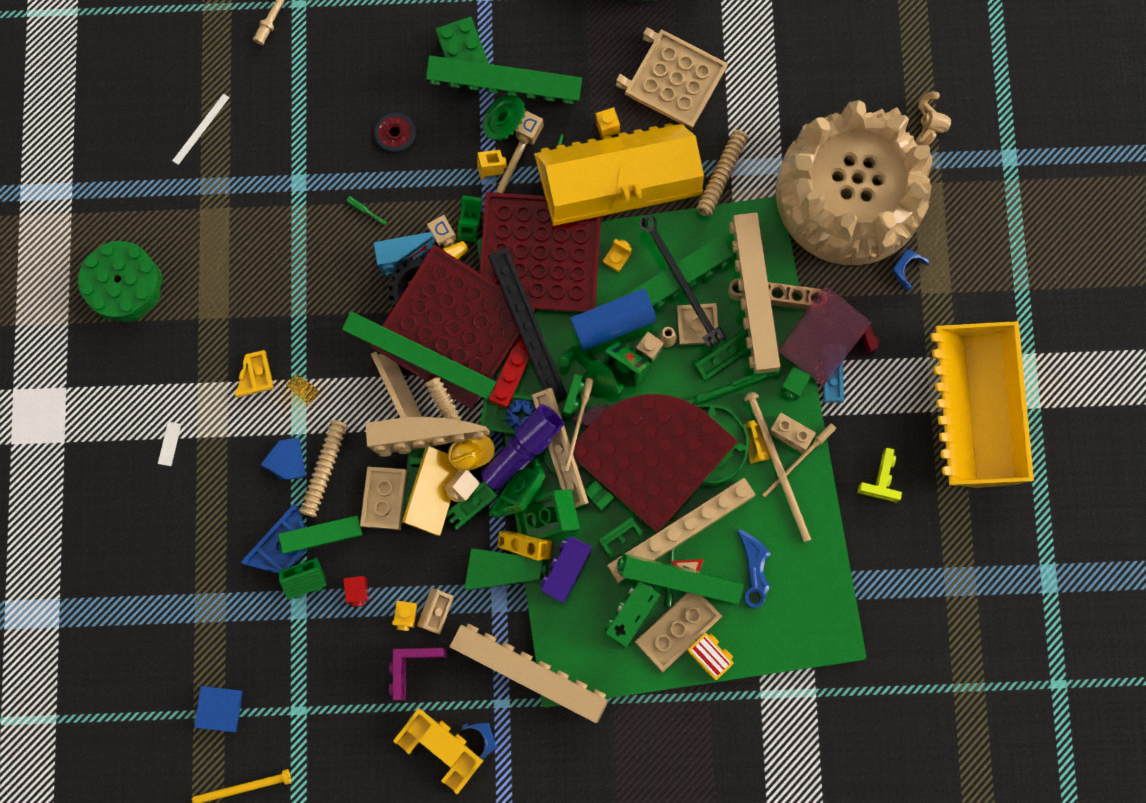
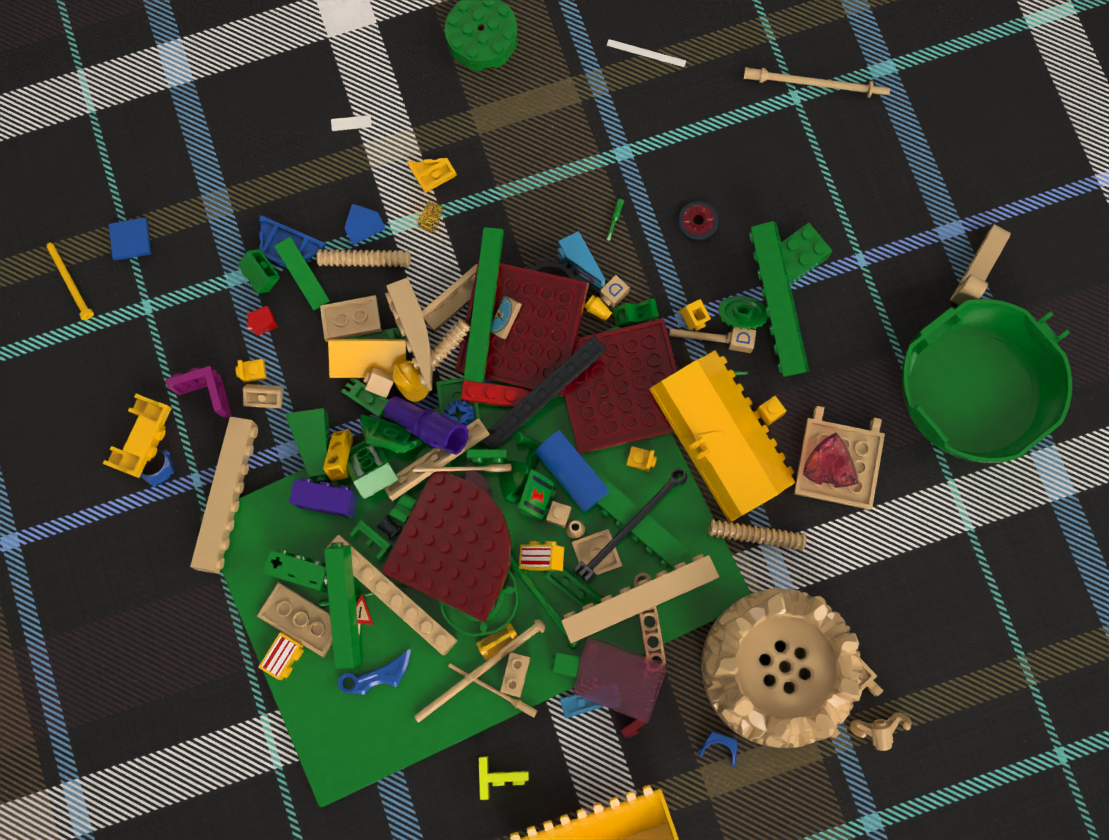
camera: 75 degrees right, 0 degrees up
(438, 338) = (505, 317): none -> slope
(613, 515) = (389, 527): none -> black bush
(676, 83) = (831, 463): none -> clear pink brick
(687, 374) = (541, 557): none -> brick

